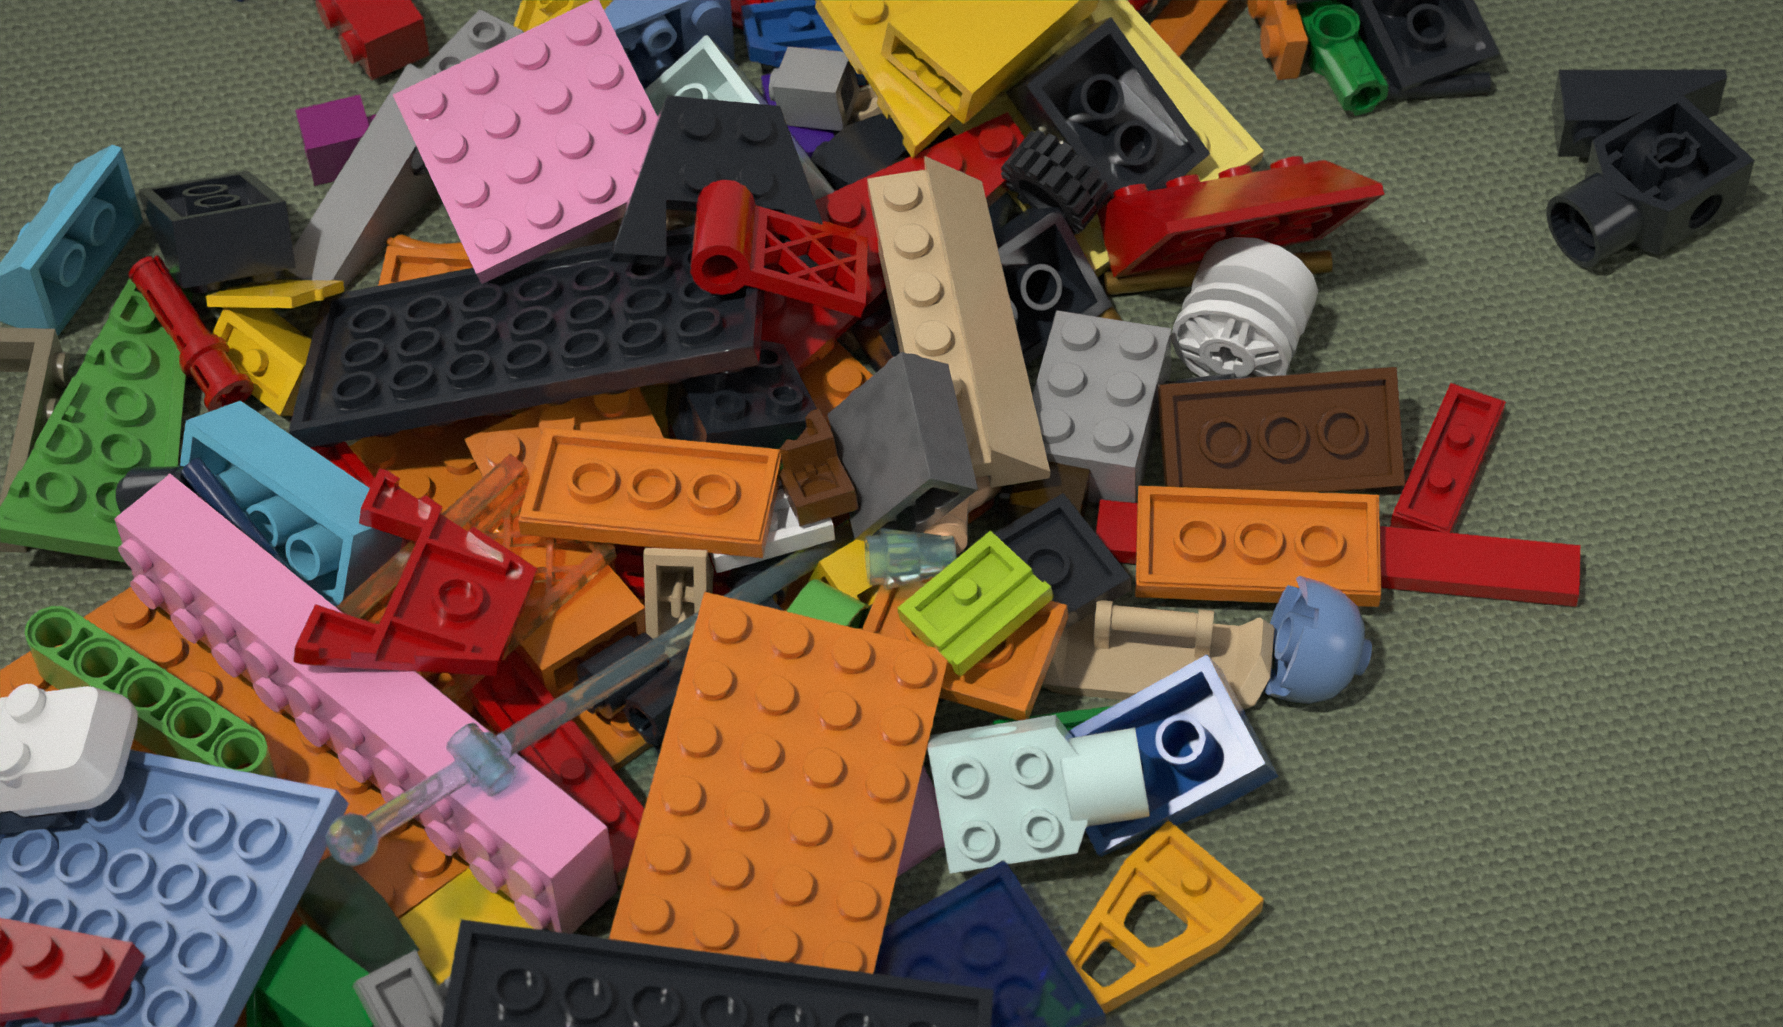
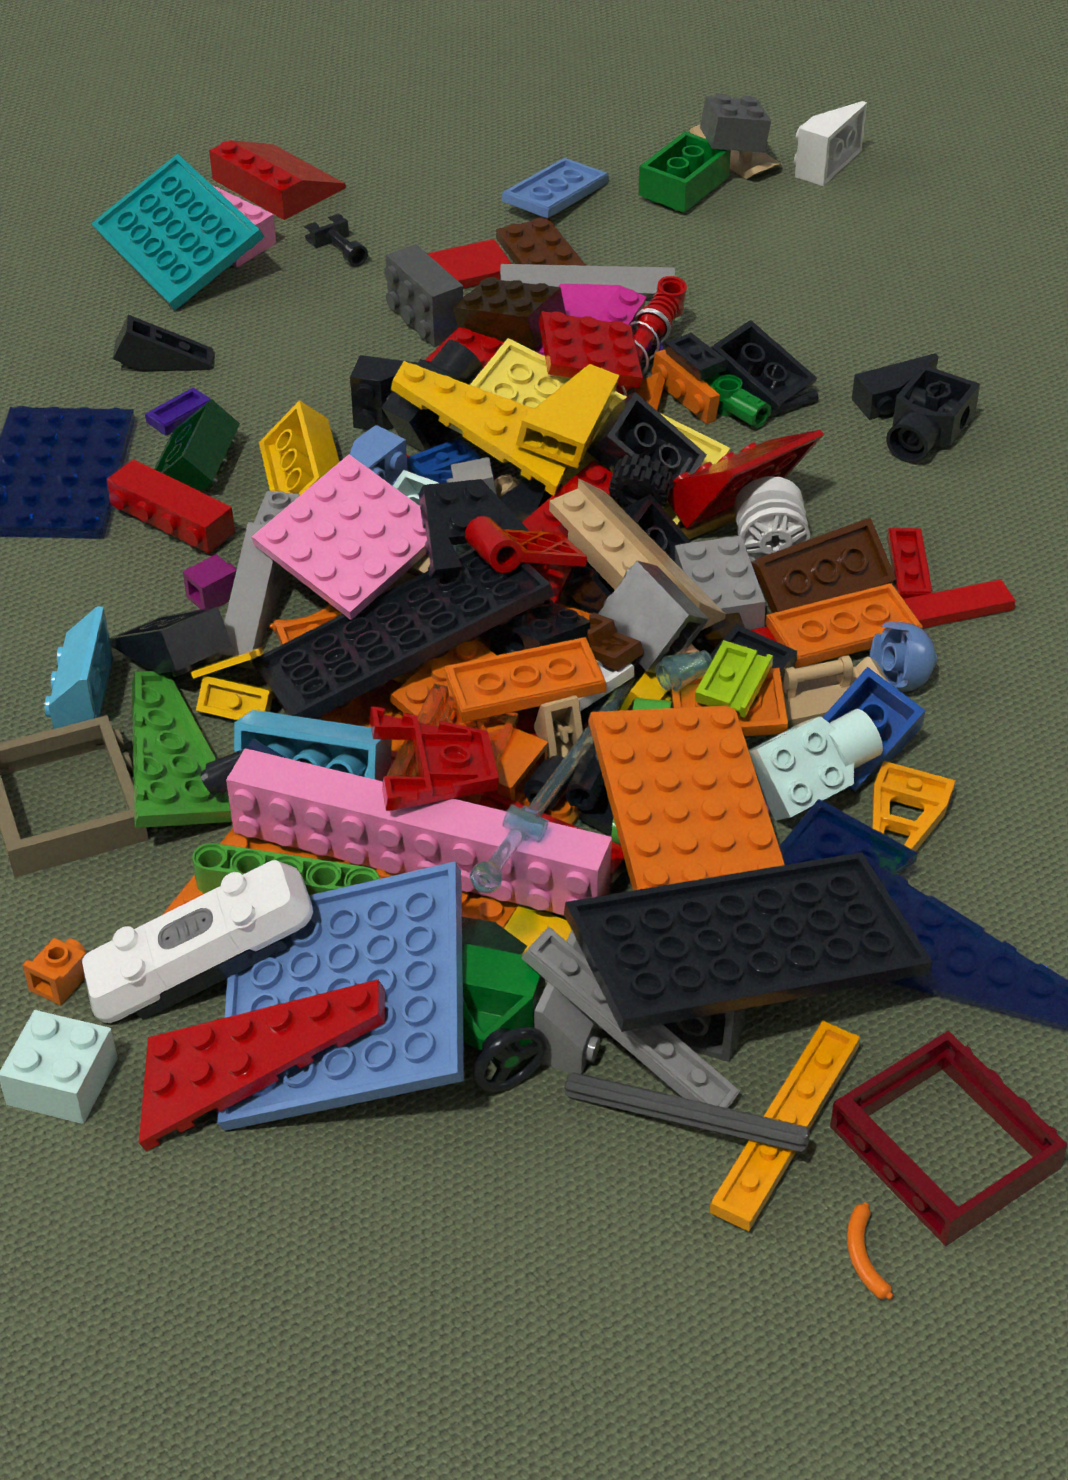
camera: 25 degrees left, 10 degrees down
(201, 353) = (201, 704): red pin -> none

